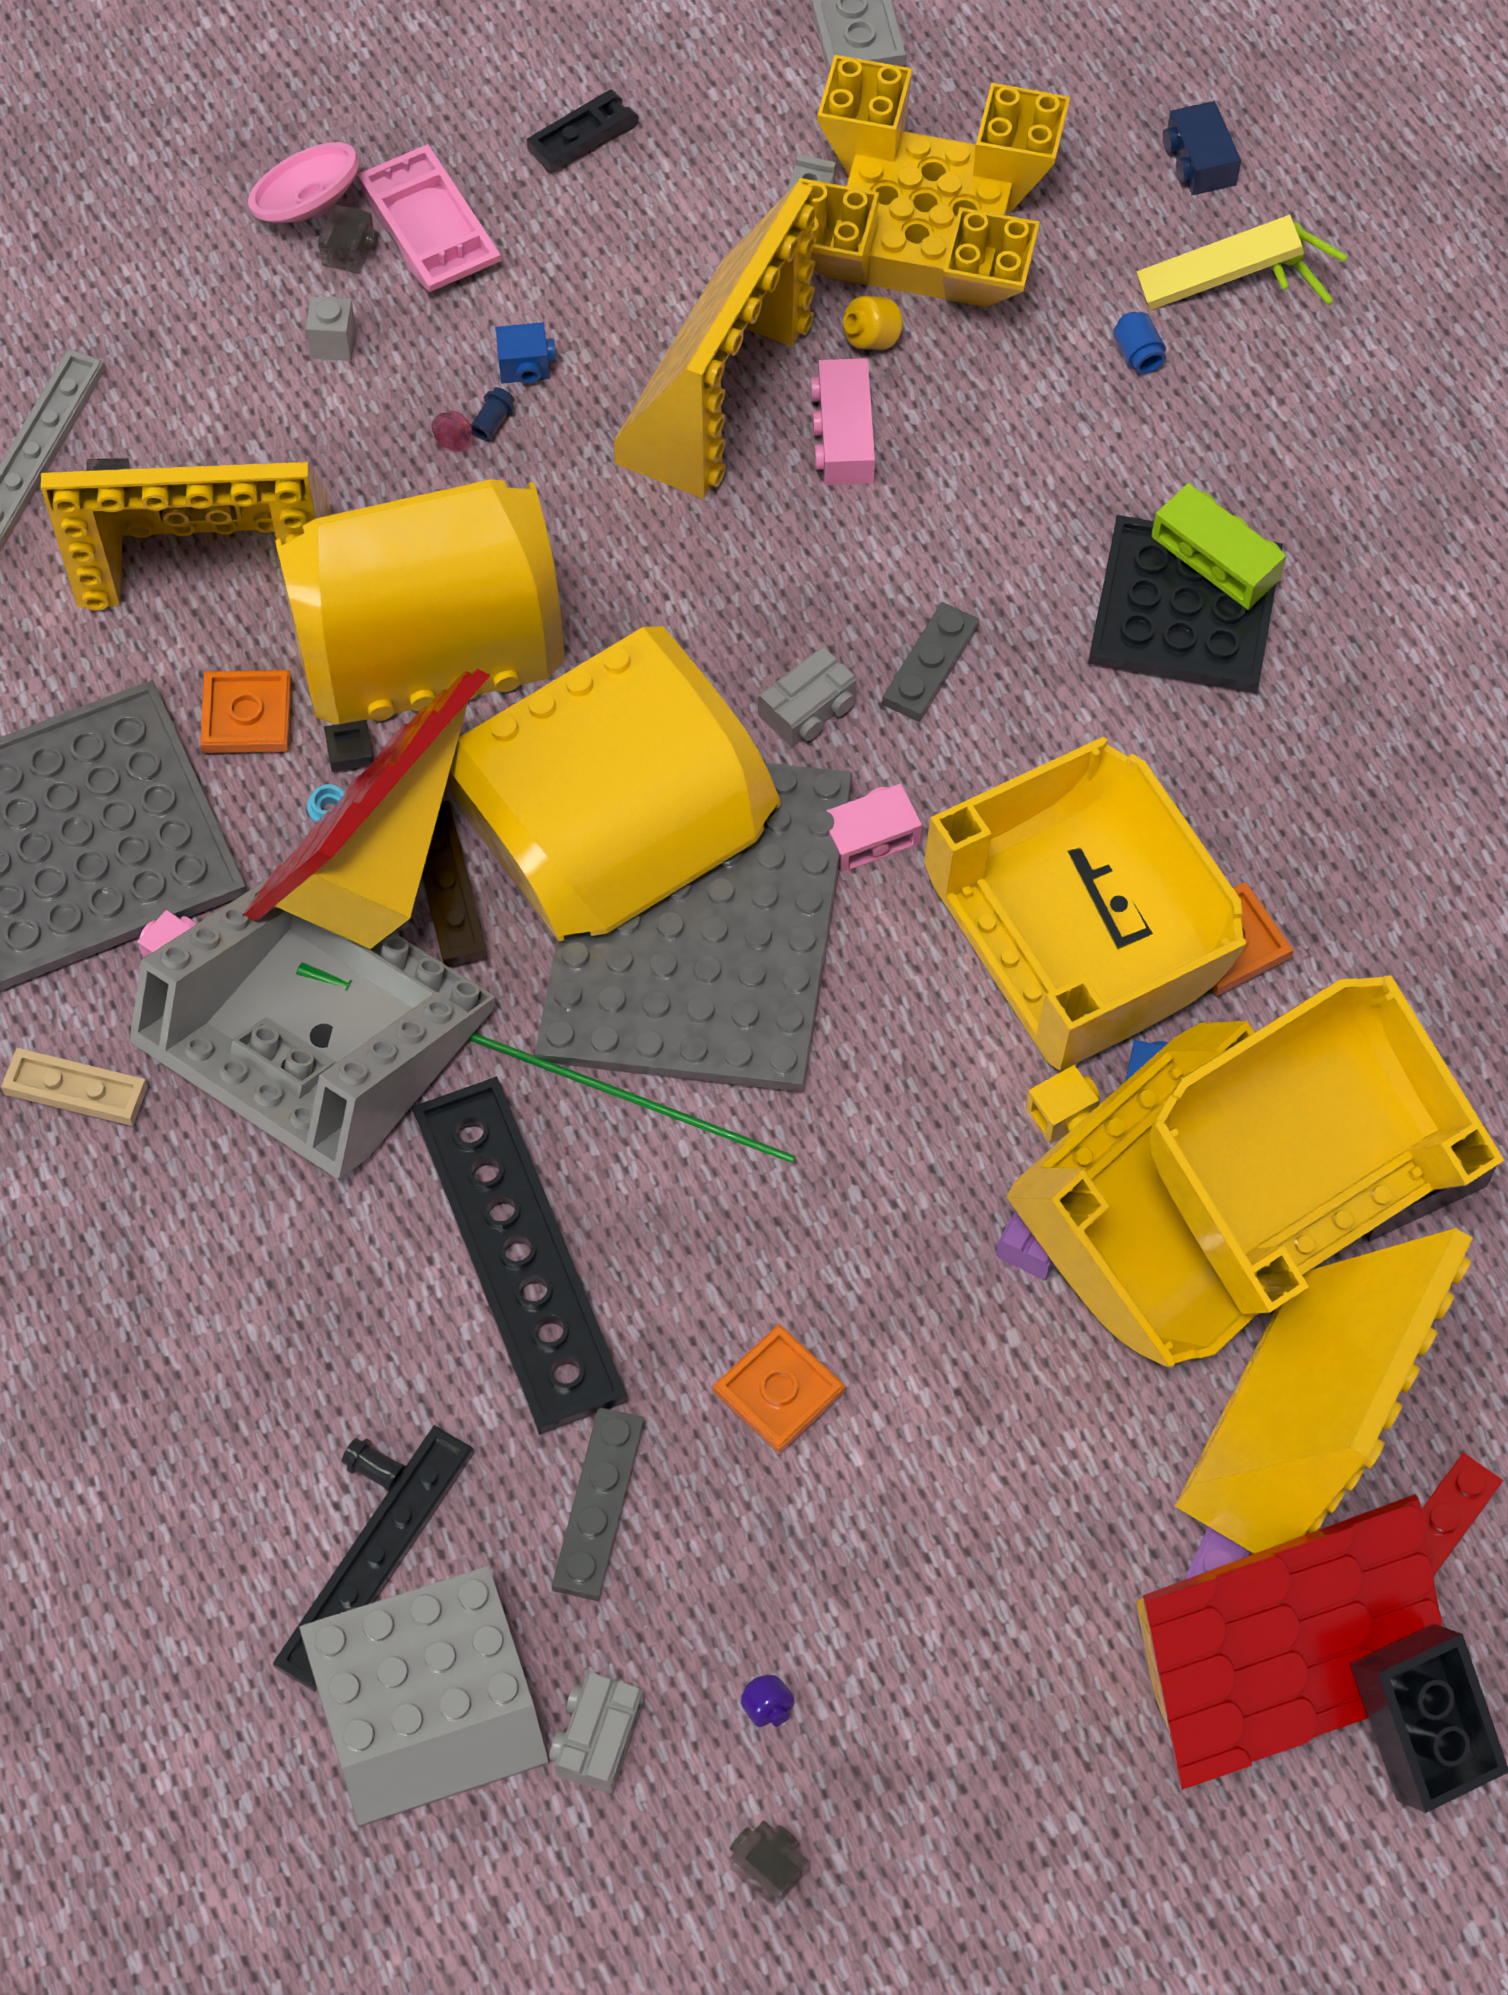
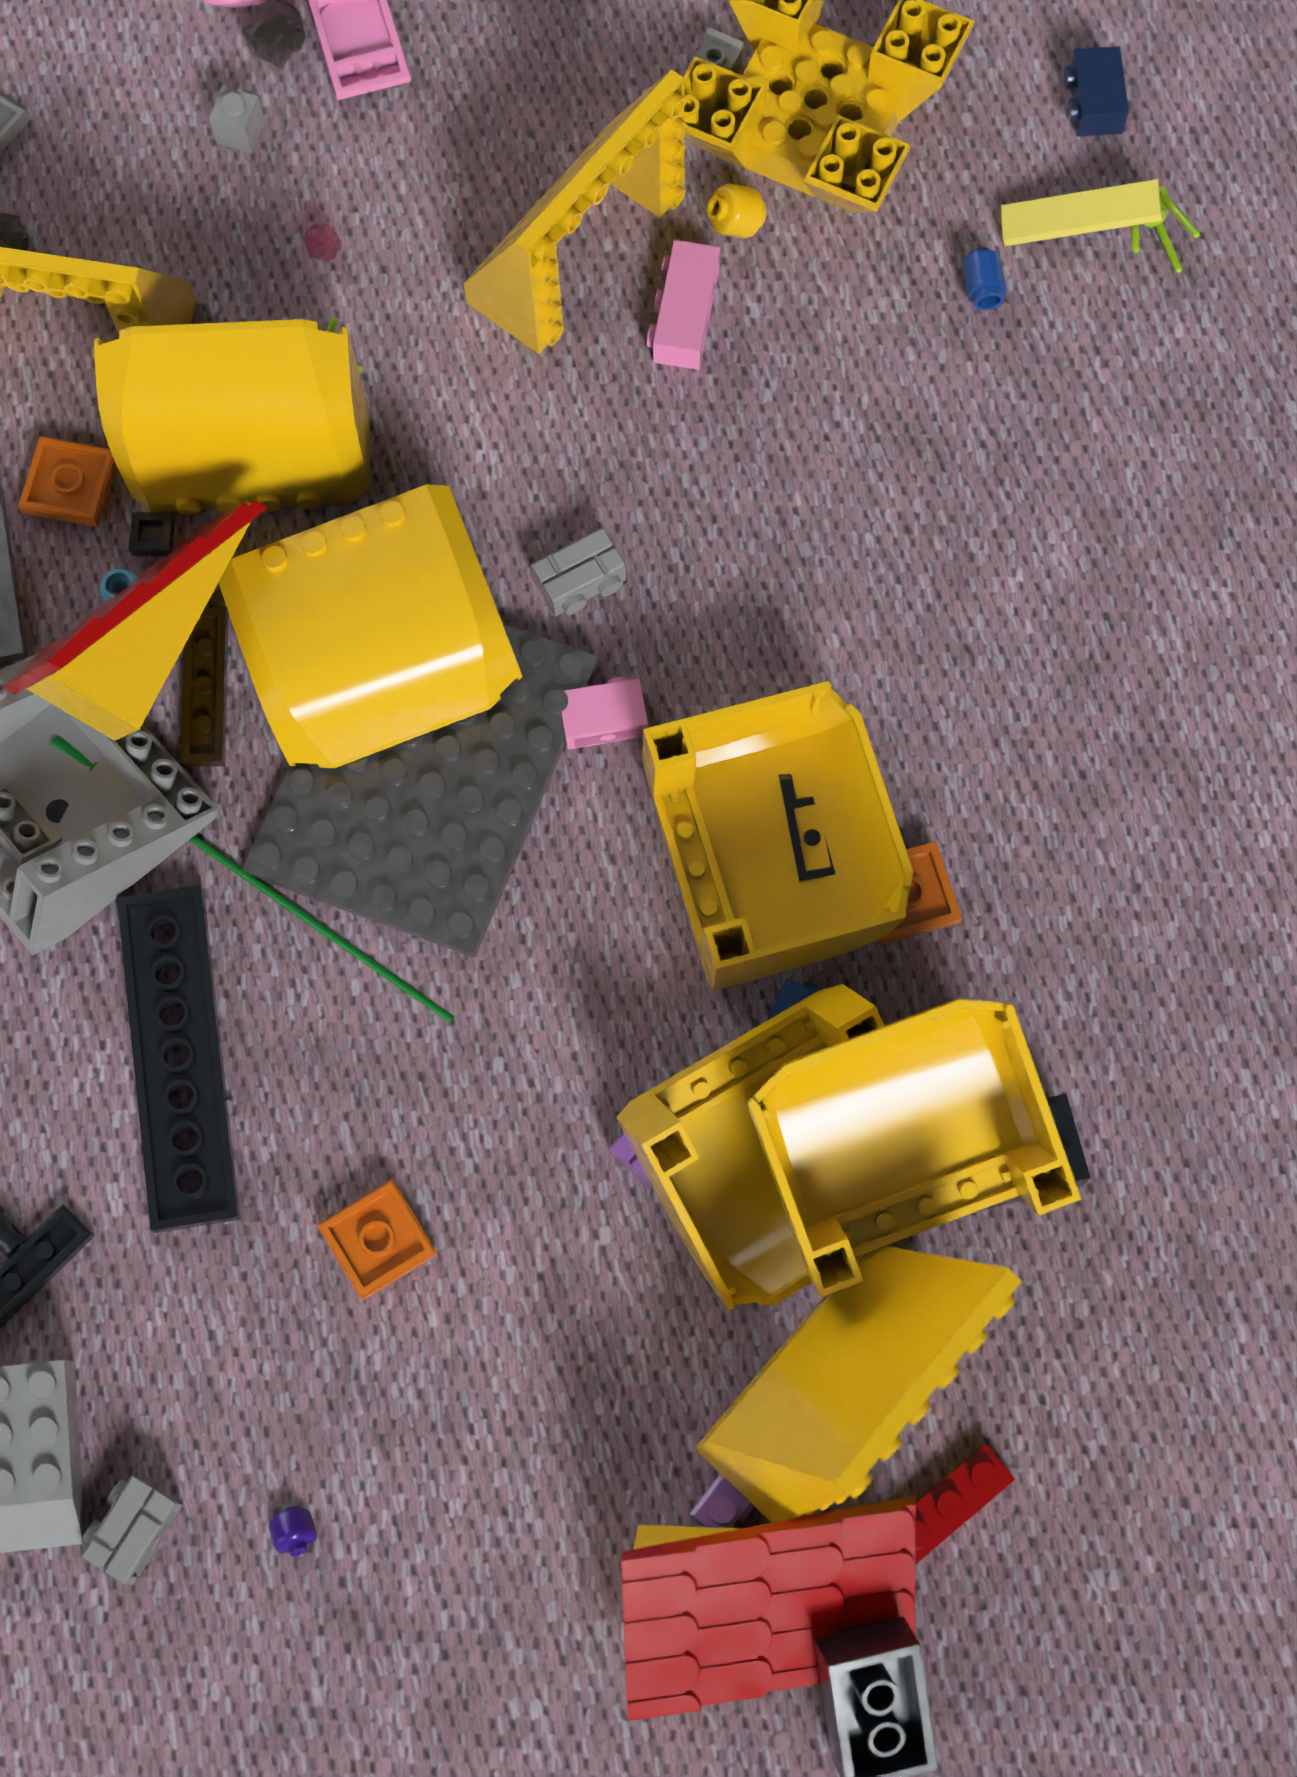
camera: 15 degrees right, 10 degrees up
(497, 406) = (364, 232): dark blue pin -> none
(524, 353) = (407, 178): blue brick -> none
(598, 1504) = (189, 1311): dark grey plate -> none
(768, 1861) = (249, 1686): clear smoke brick -> none
(930, 661) = (704, 559): dark grey plate -> none
(1062, 1102) = (708, 1022): yellow brick -> none
(1172, 620) = (956, 550): black plate -> none
(1218, 545) = (999, 502): lime brick -> none

